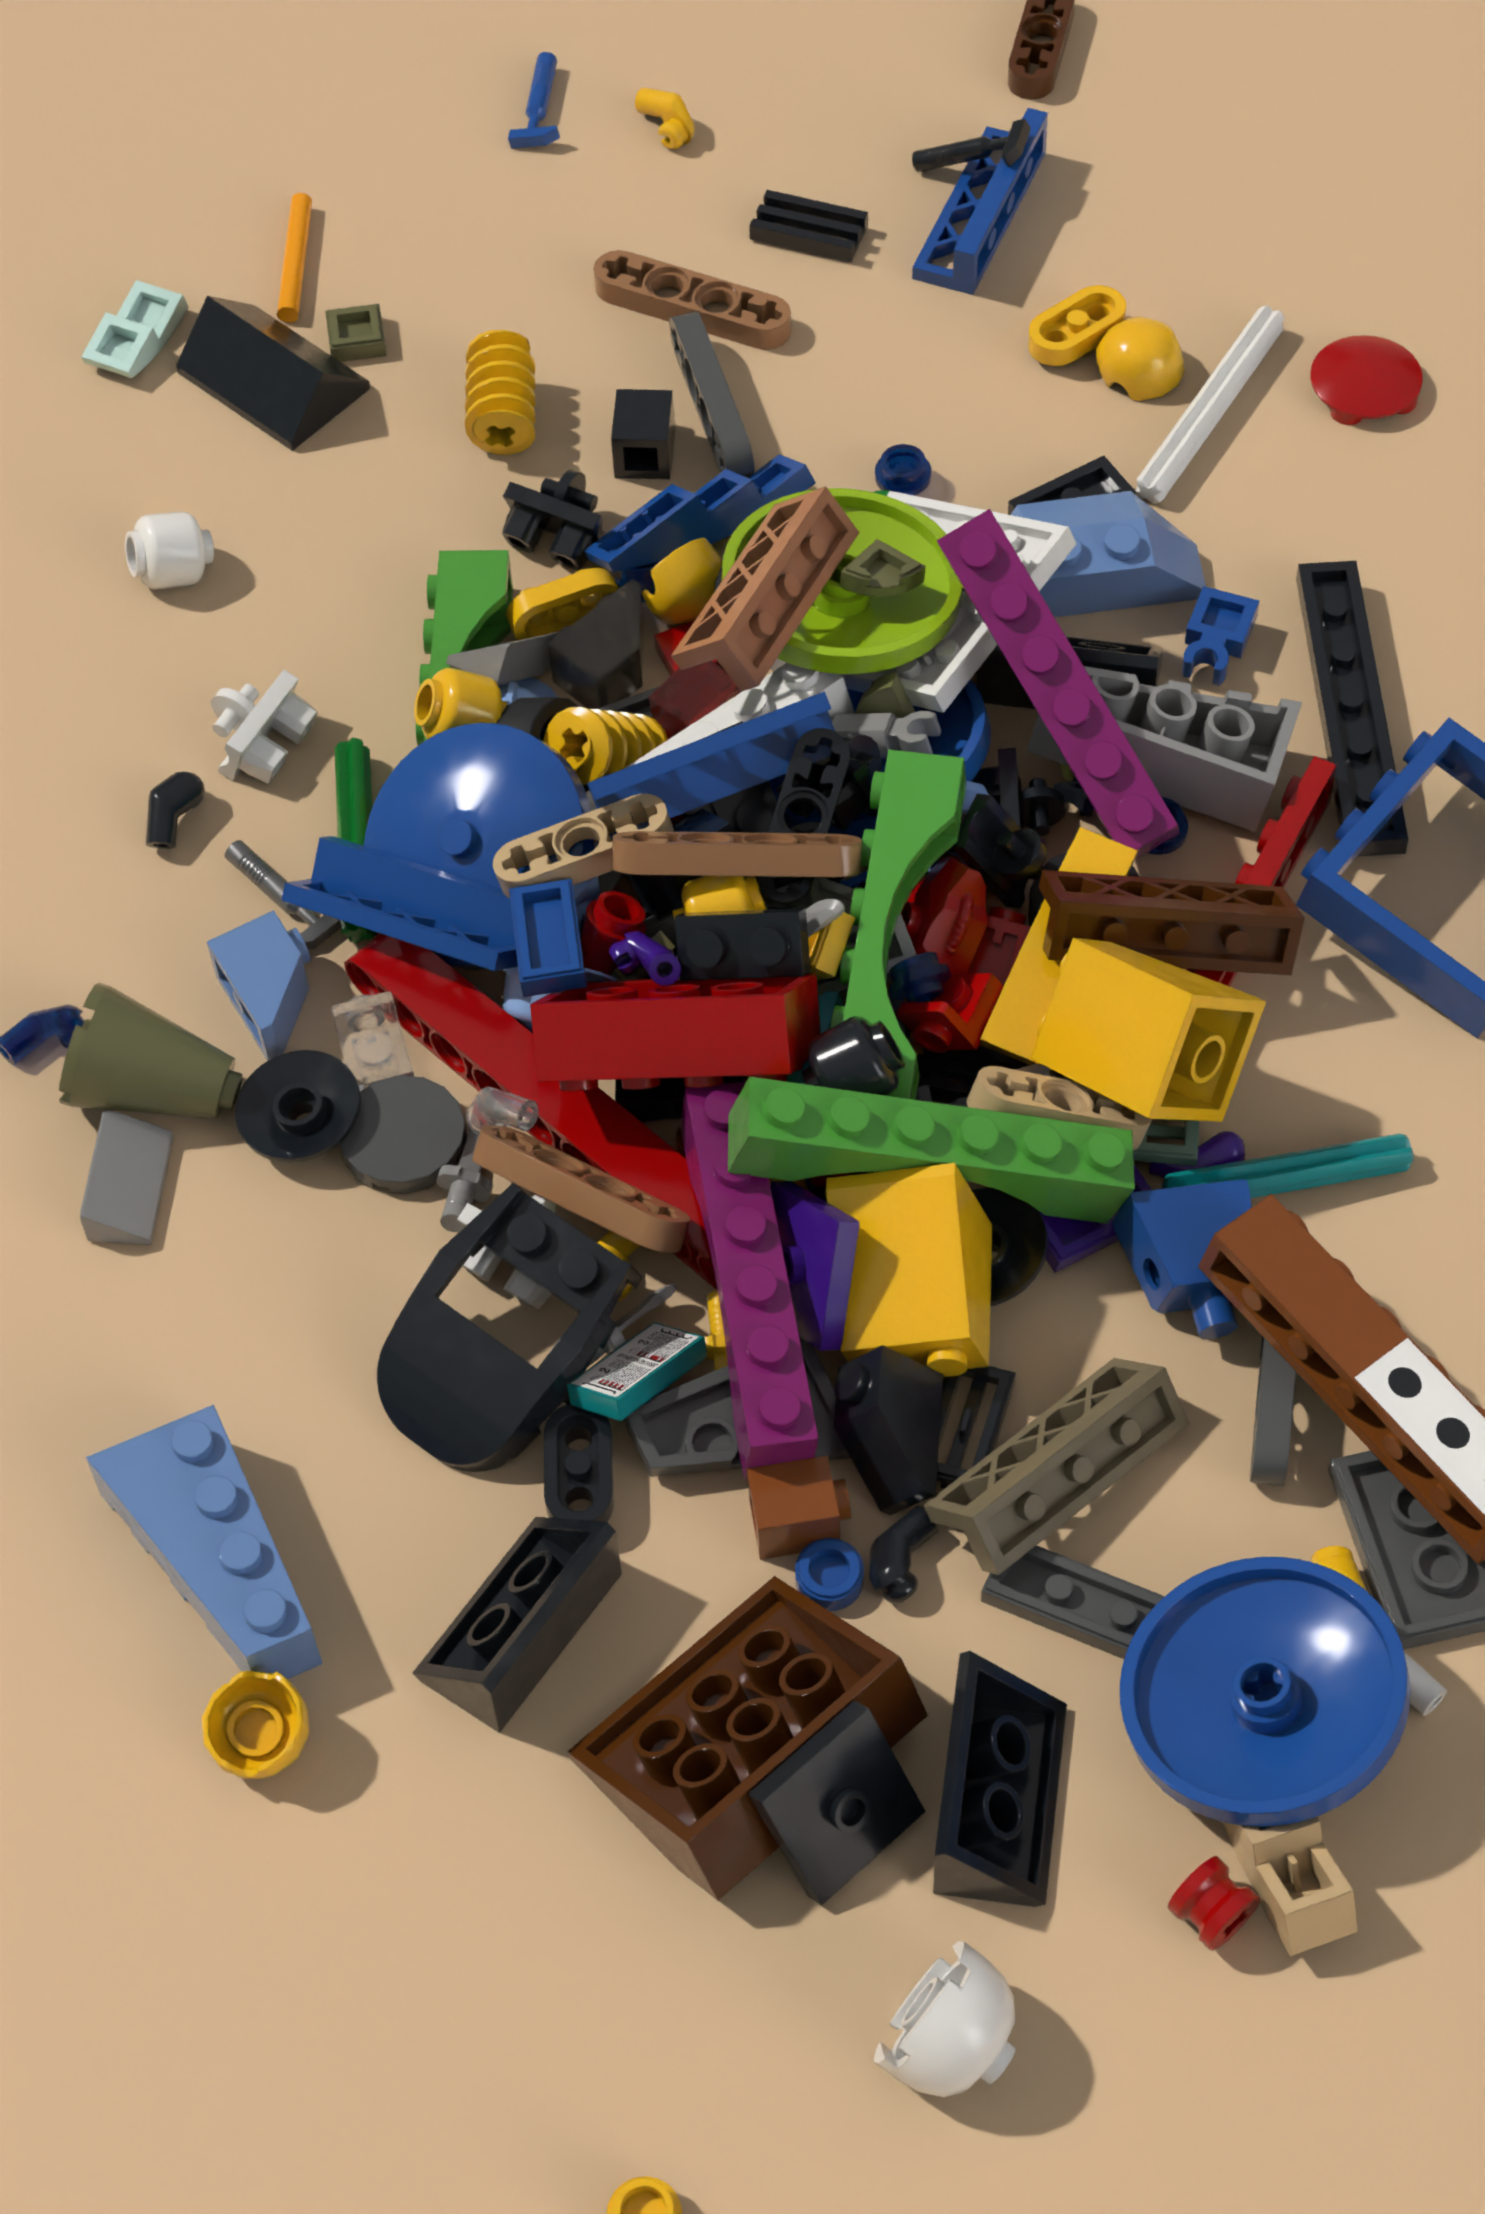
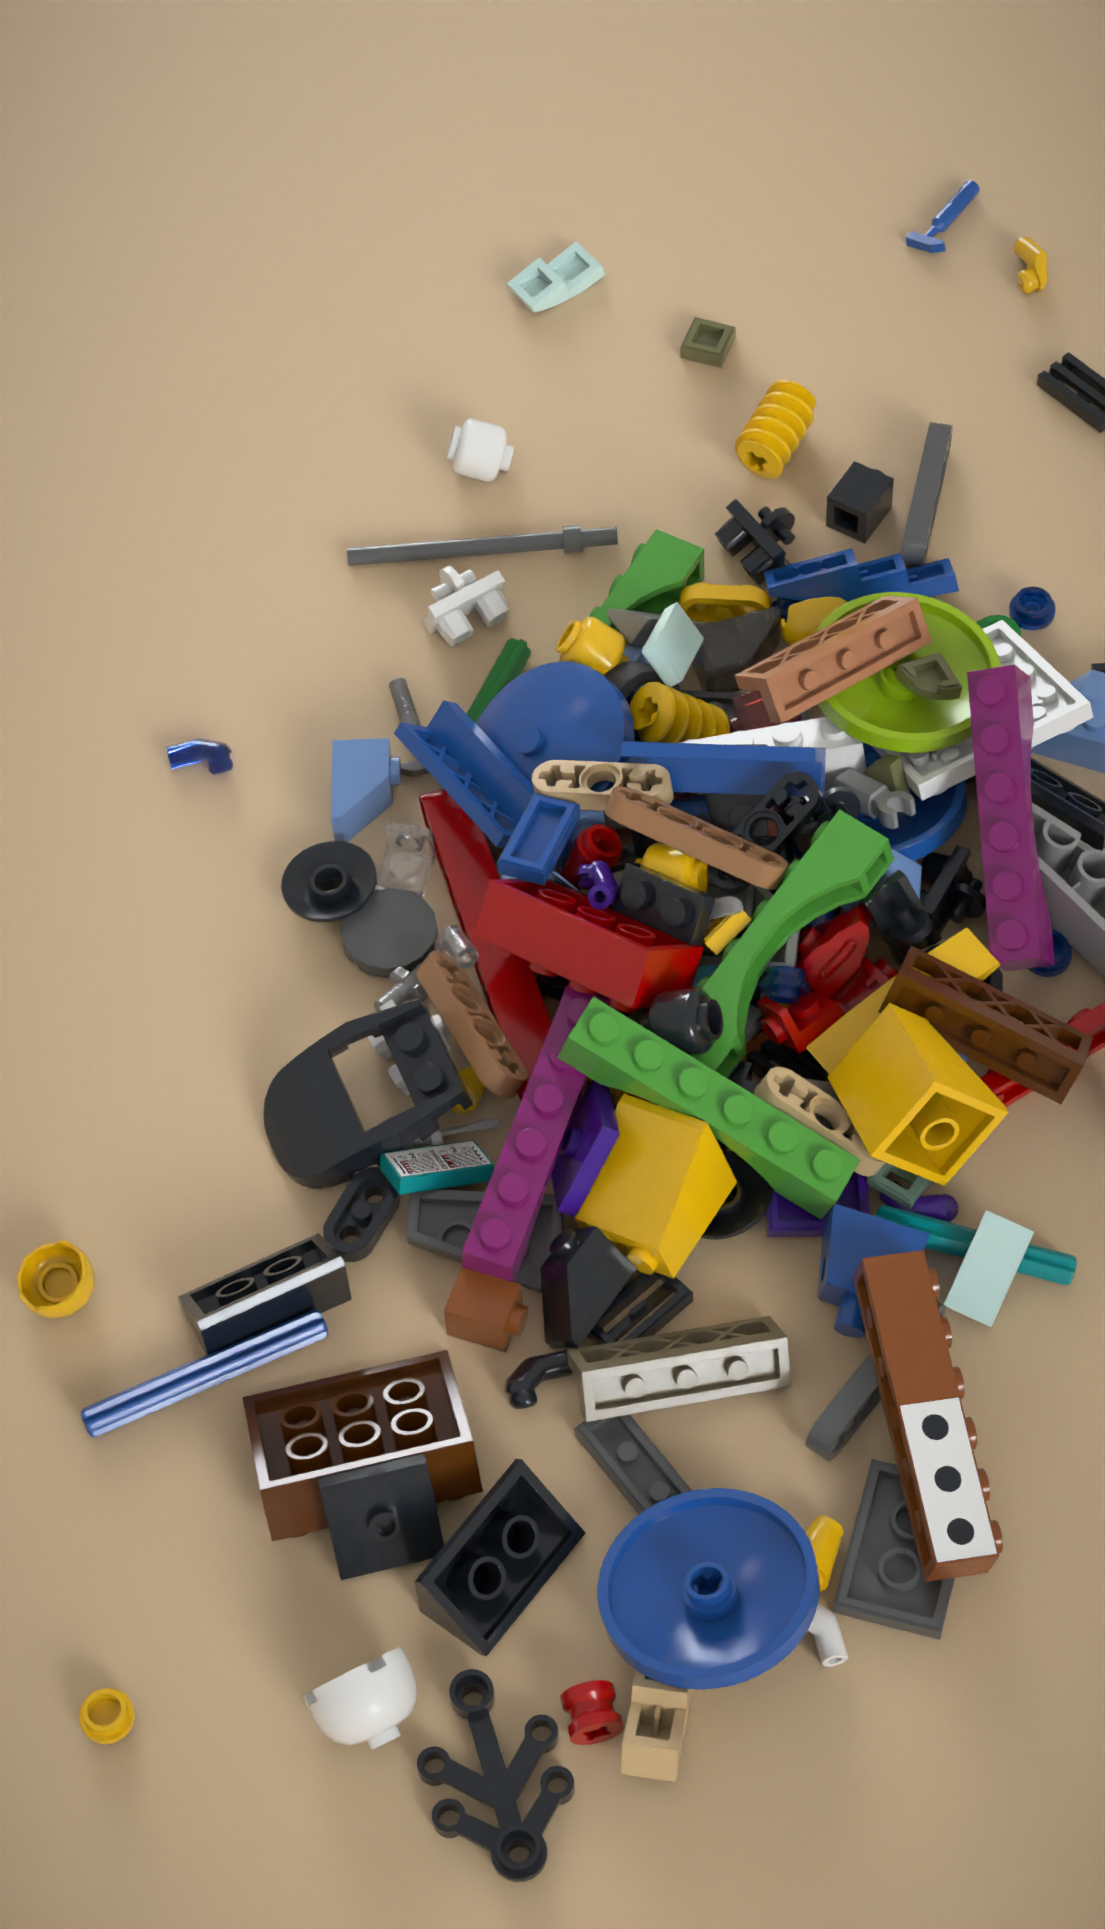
camera: 30 degrees right, 0 degrees up
(125, 1180) = (192, 879): light grey slope -> none
(144, 1063) = (243, 803): olive cone -> none
(168, 802) = (371, 631): black arm -> none
(204, 1529) = (102, 1142): medium blue wedge -> none
(266, 371) = (629, 345): black slope -> none
(294, 258) = (699, 268): light orange bar -> none
(334, 607) = (570, 539): none -> dark grey bar
(502, 1748) = (204, 1373): none -> axle
(554, 662) = (672, 645): none -> light aqua tile
(752, 319) = (968, 410): medium nougat beam -> none
(830, 1573) = (483, 1367): blue tile -> none
(1157, 2046) = (498, 1786): none -> black plant
(1327, 1183) = (988, 1268): none -> light aqua tile

